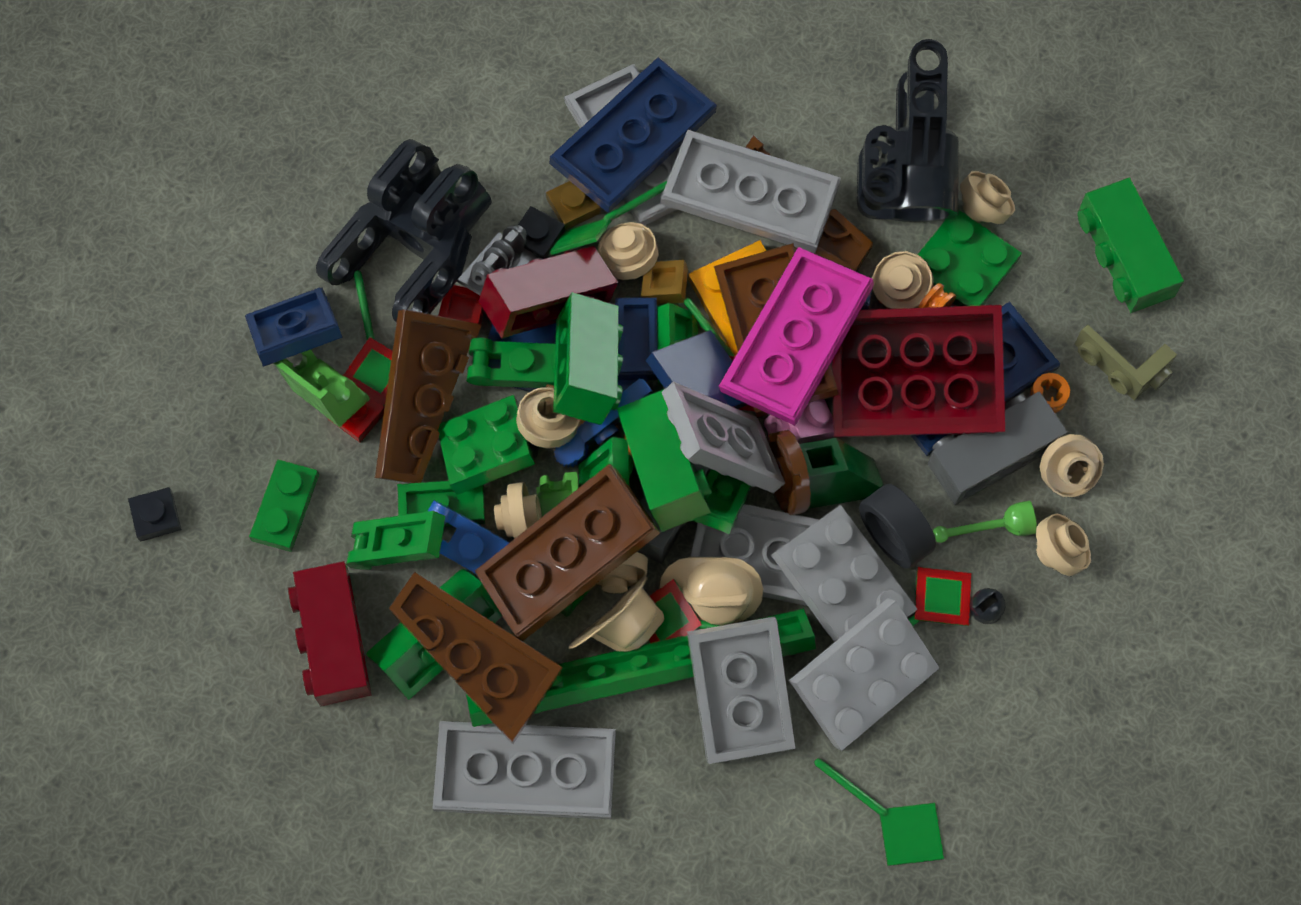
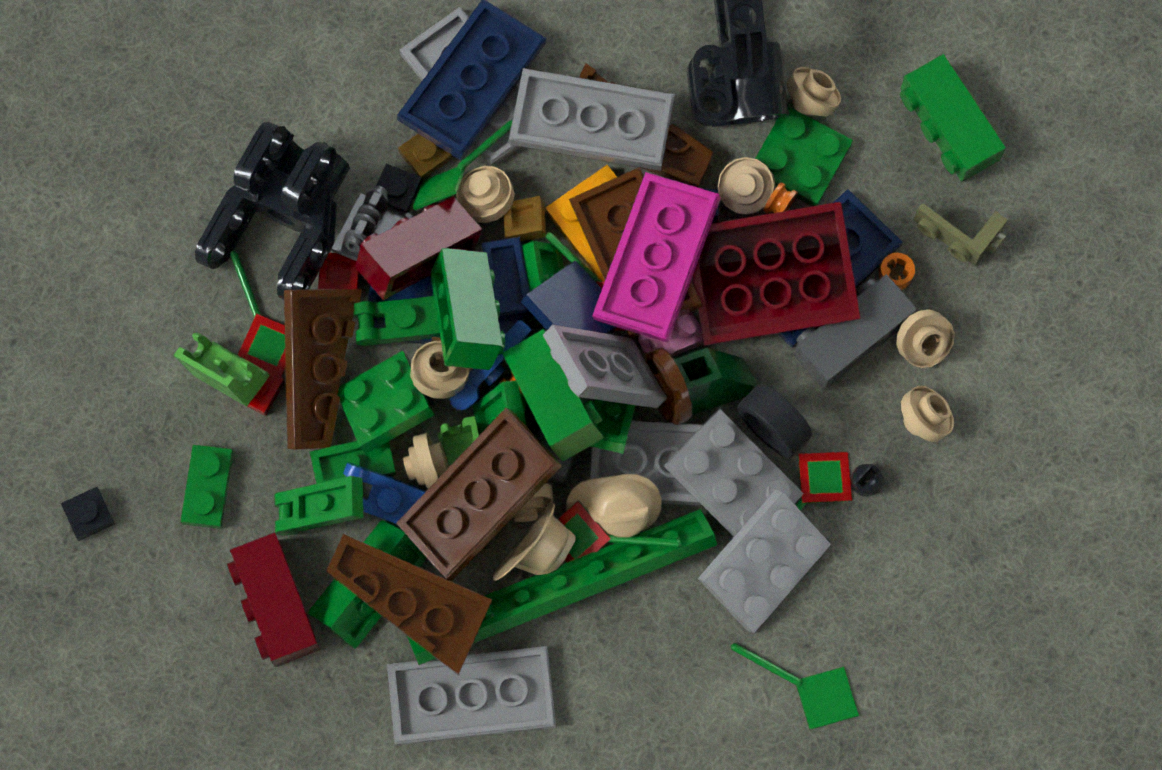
camera: 10 degrees left, 5 degrees up
(293, 326) = (184, 316): dark blue tile -> none
(741, 690) = (655, 593): light grey plate -> none
(1018, 520) = (882, 396): bright green hinge -> none

